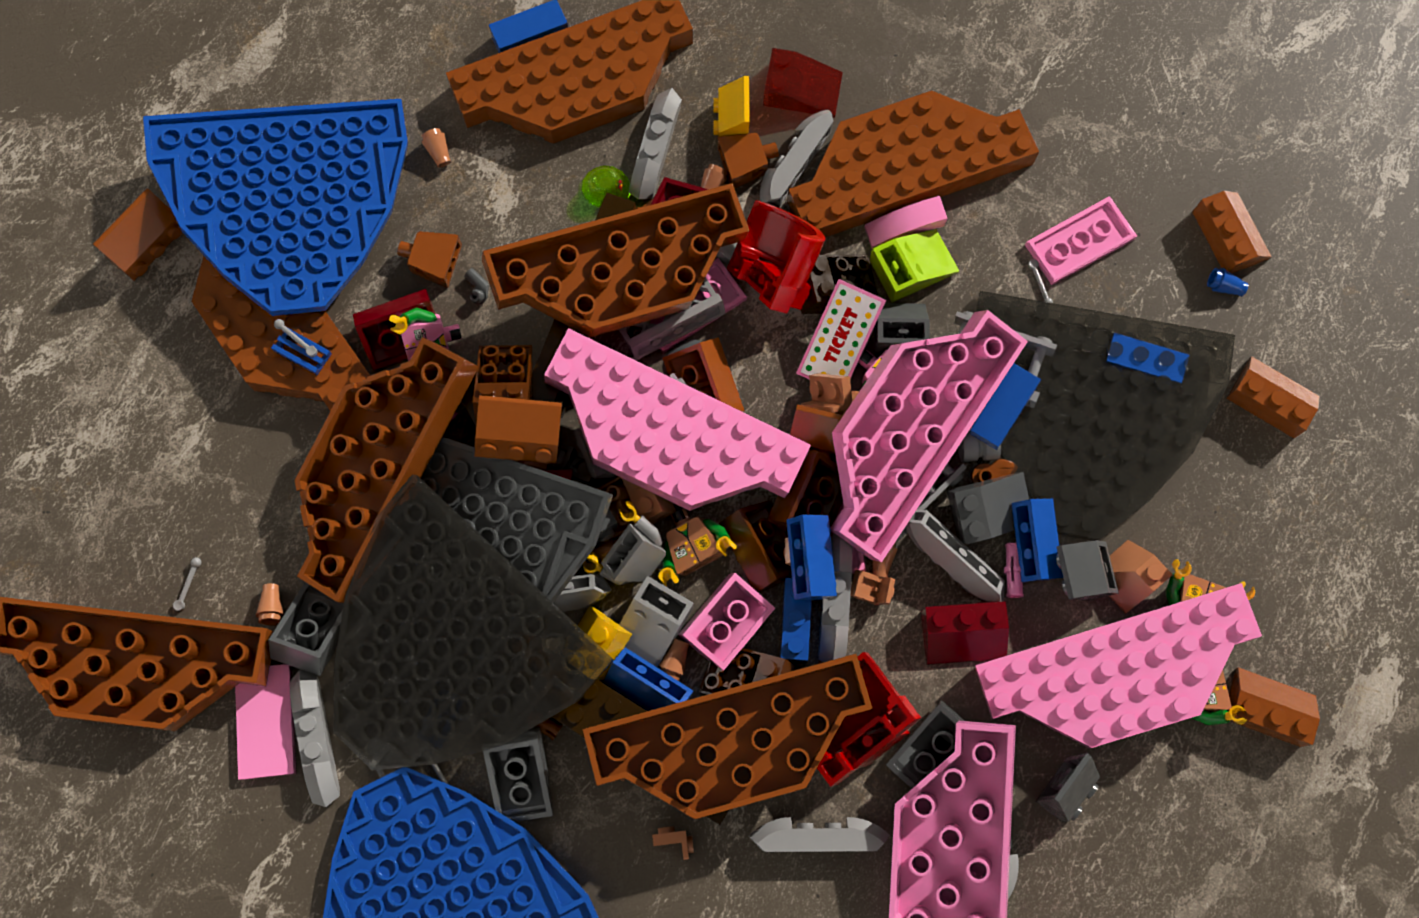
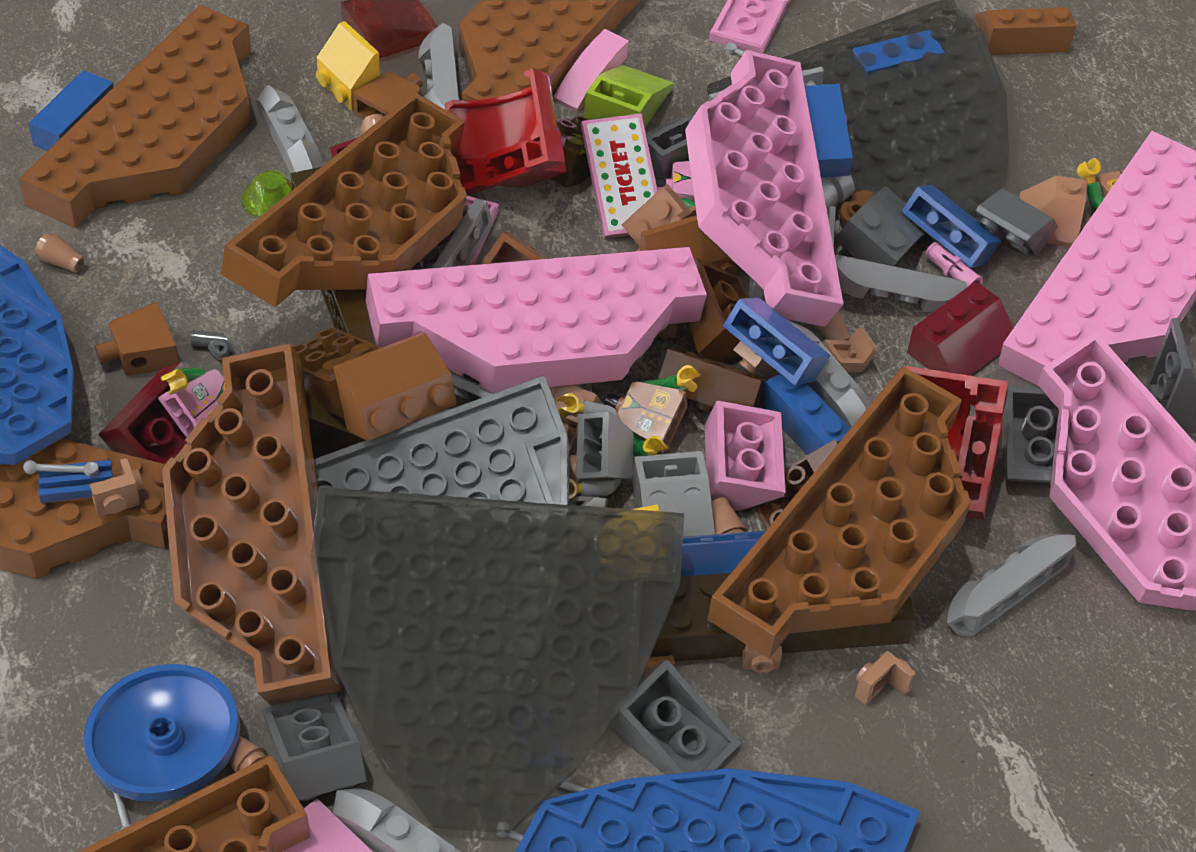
camera: 40 degrees left, 25 degrees down
(233, 559) = (162, 732): none -> blue dish
(312, 381) = (117, 492): none -> nougat bracket

